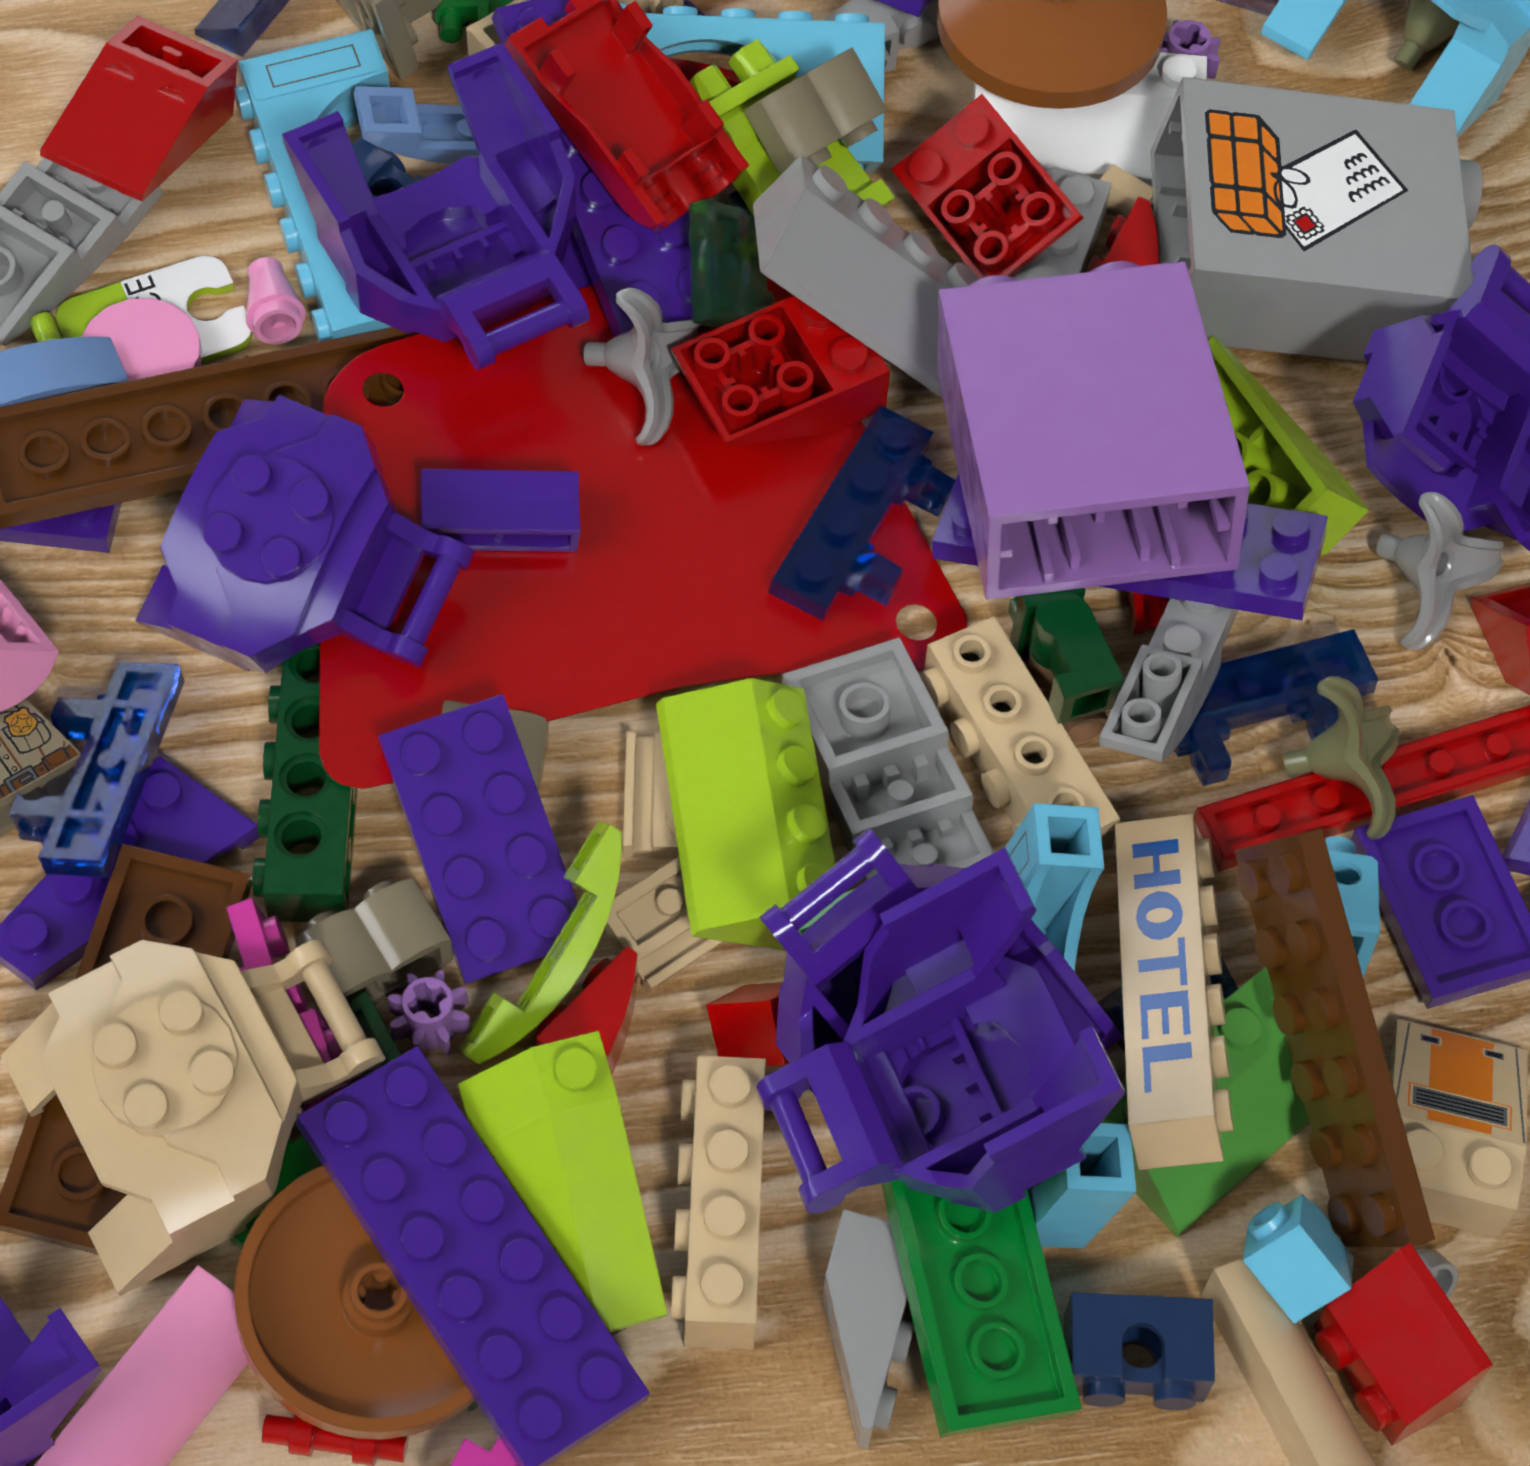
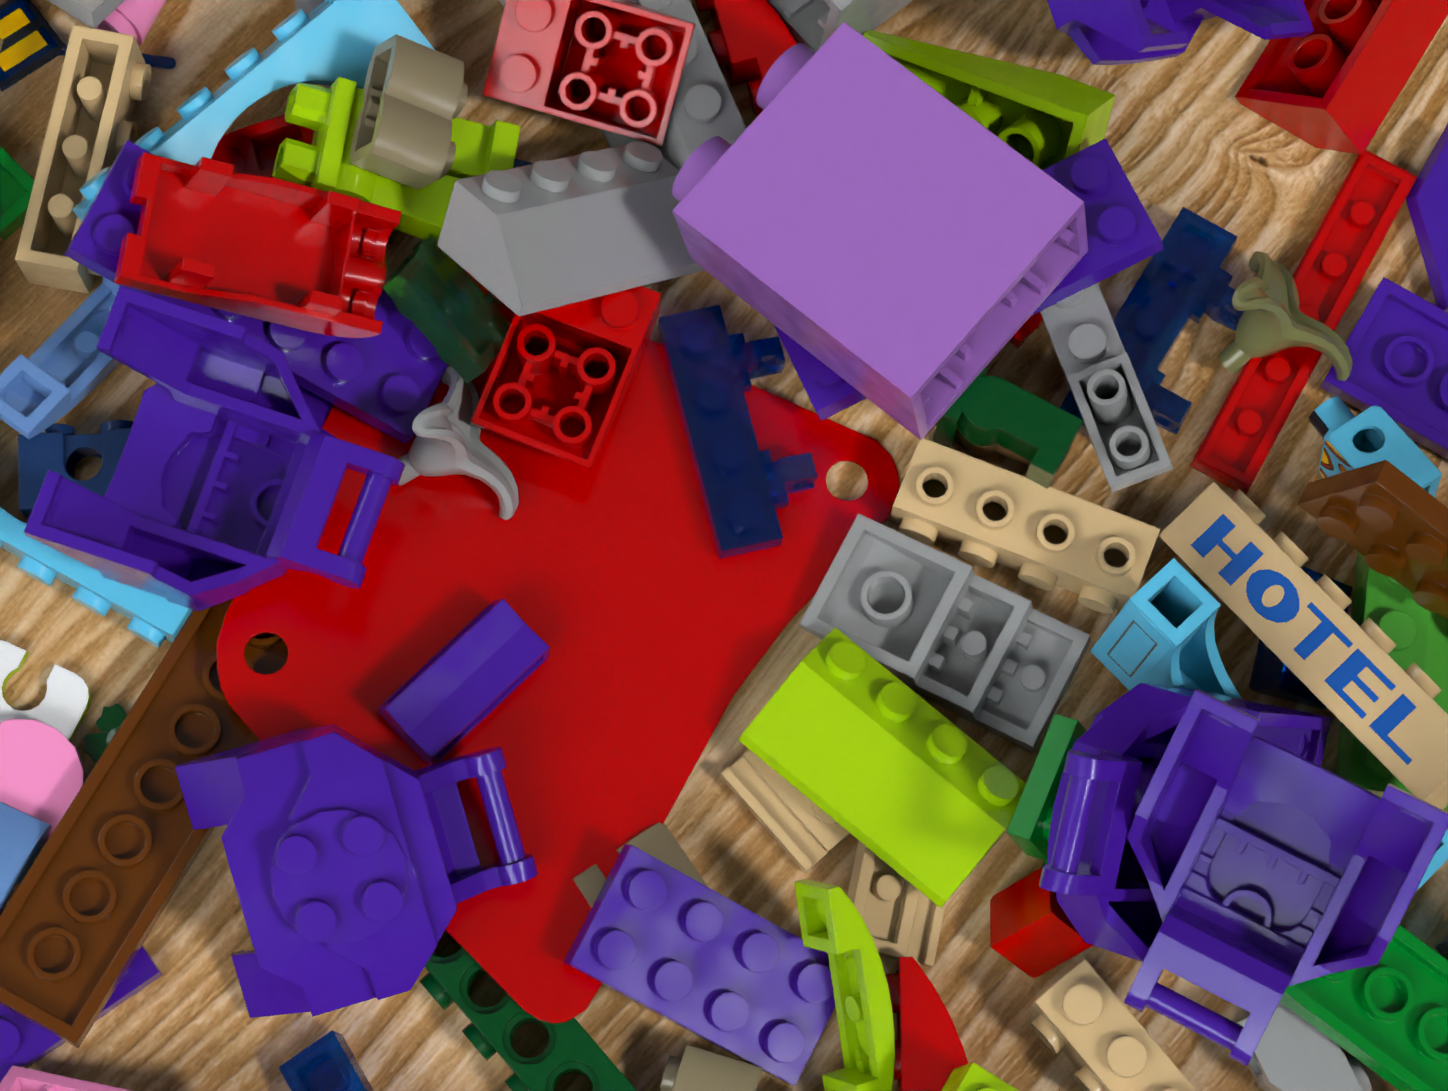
camera: 40 degrees left, 15 degrees up
(272, 304) = (83, 644): bright pink cone -> none
(1440, 565) = (1197, 97): light grey piece -> none

